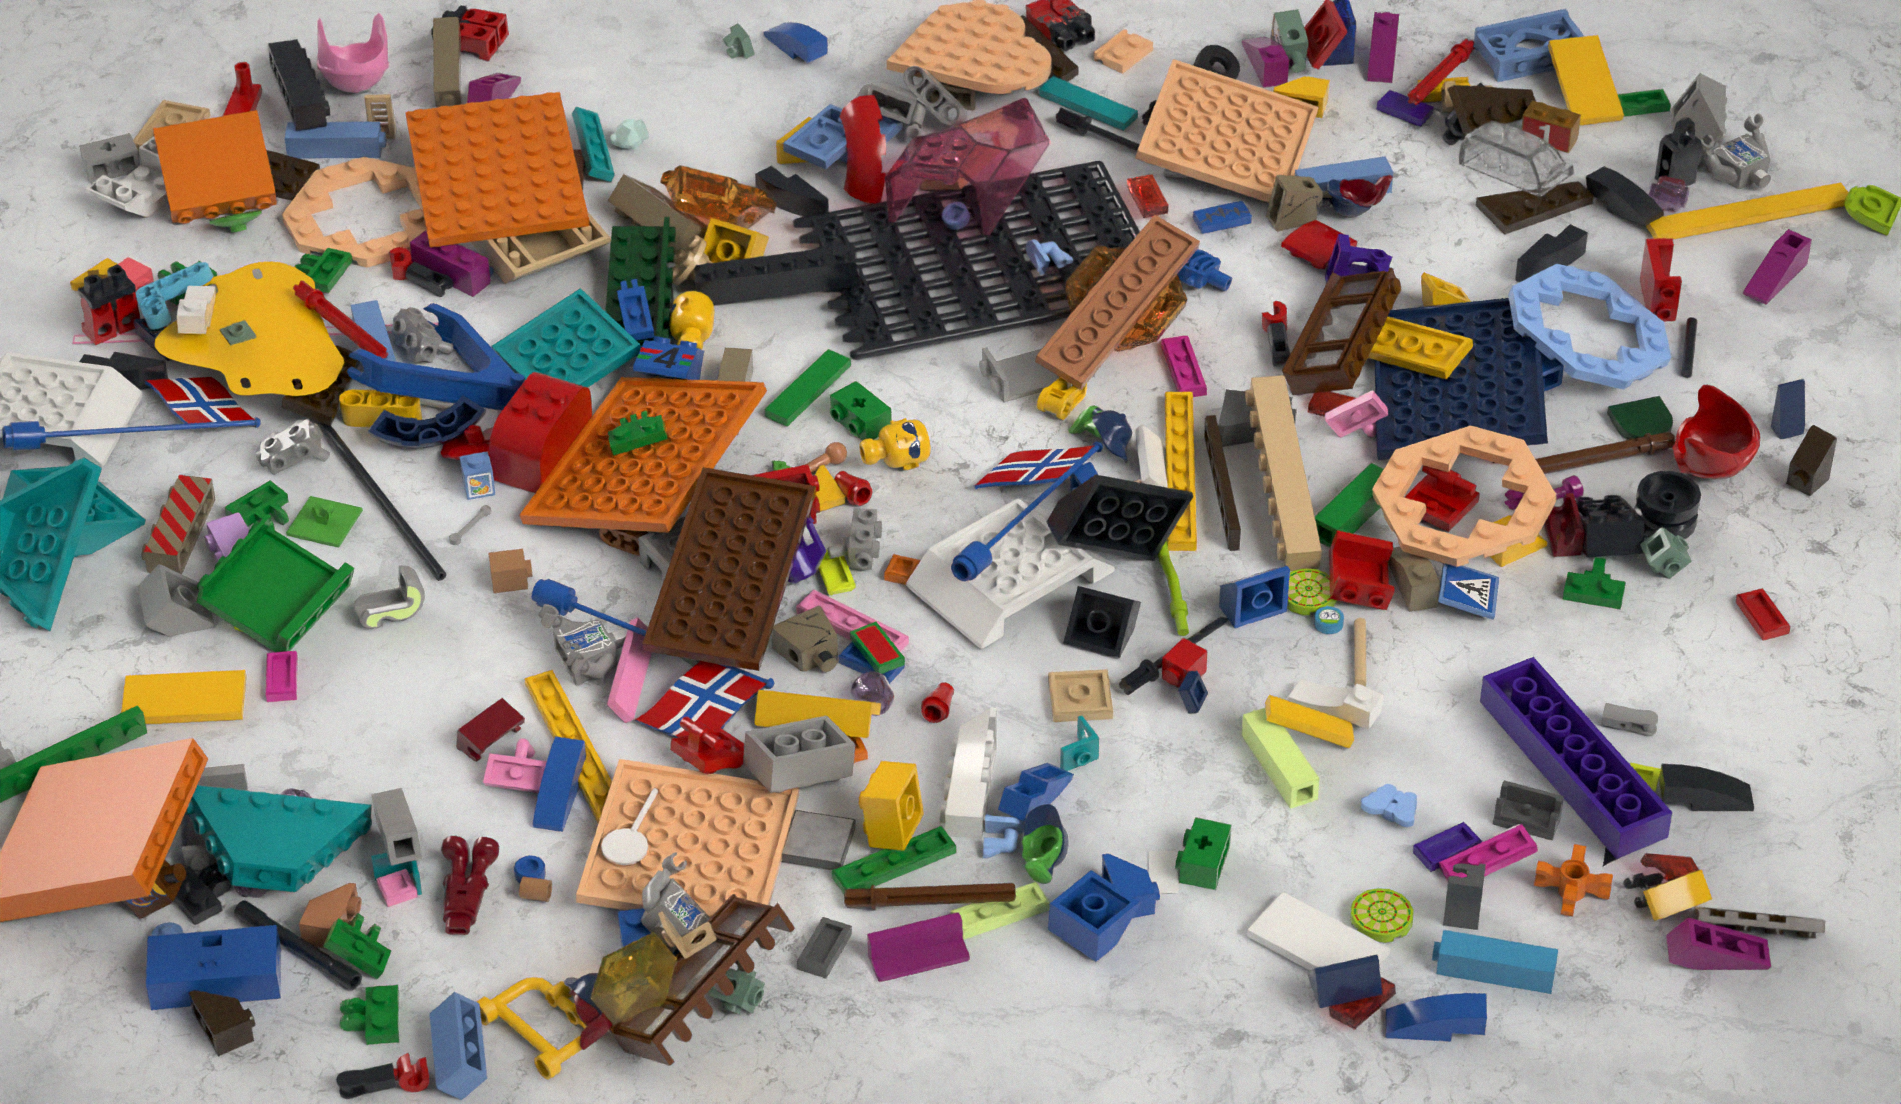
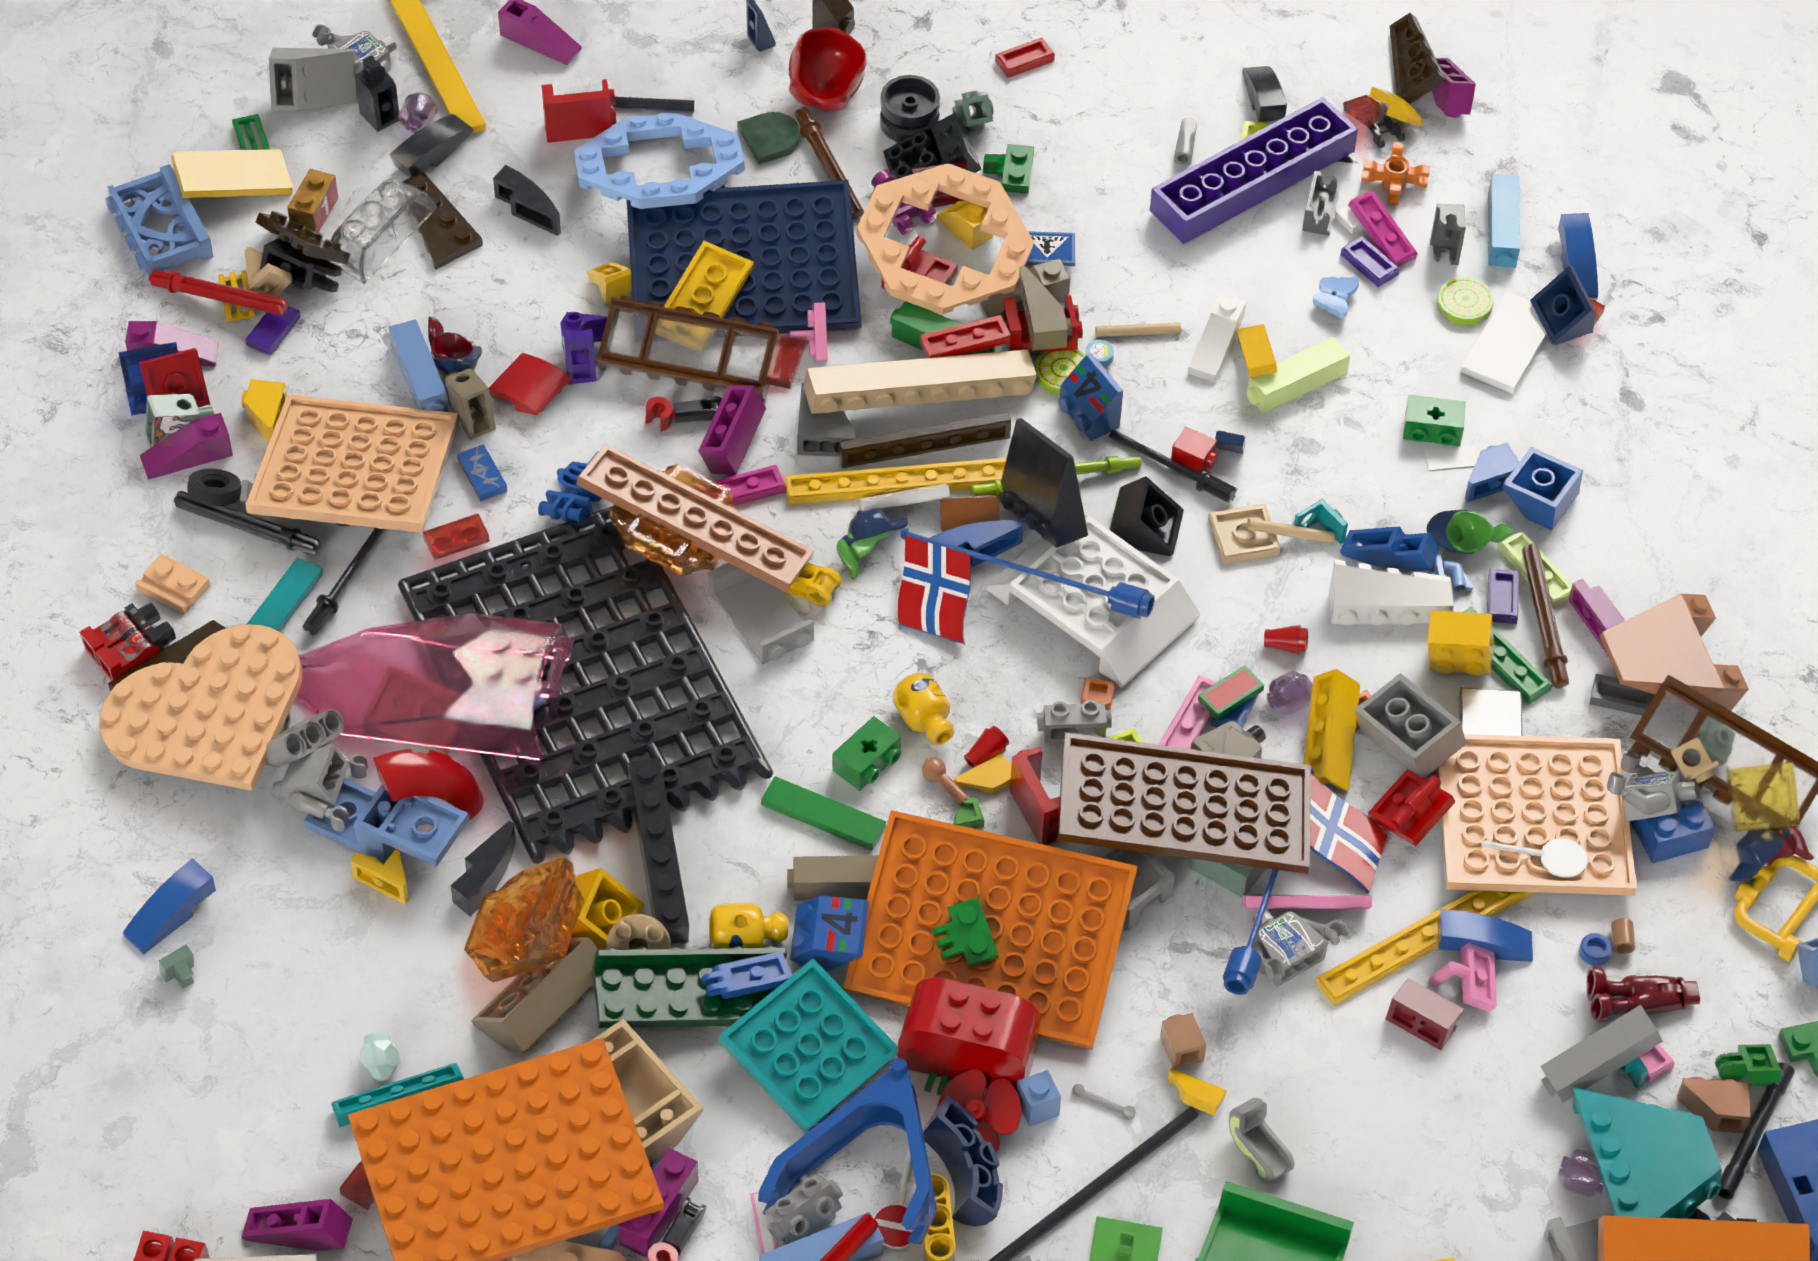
camera: 100 degrees left, 10 degrees up
(281, 676) = (1383, 1236): dark pink tile -> none
(456, 576) = (1197, 1092): none -> yellow tile
(850, 957) = (1670, 643): none -> wedge
(964, 873) = (1503, 595): none -> tile
(1038, 255) = (597, 604): light blue piece -> none
(1073, 713) = (1290, 530): none -> tan bar
(1241, 353) = (732, 429): none -> magenta brick
(1330, 499) = (966, 338): none -> plate
(1363, 554) = (1043, 313): none -> dark tan slope

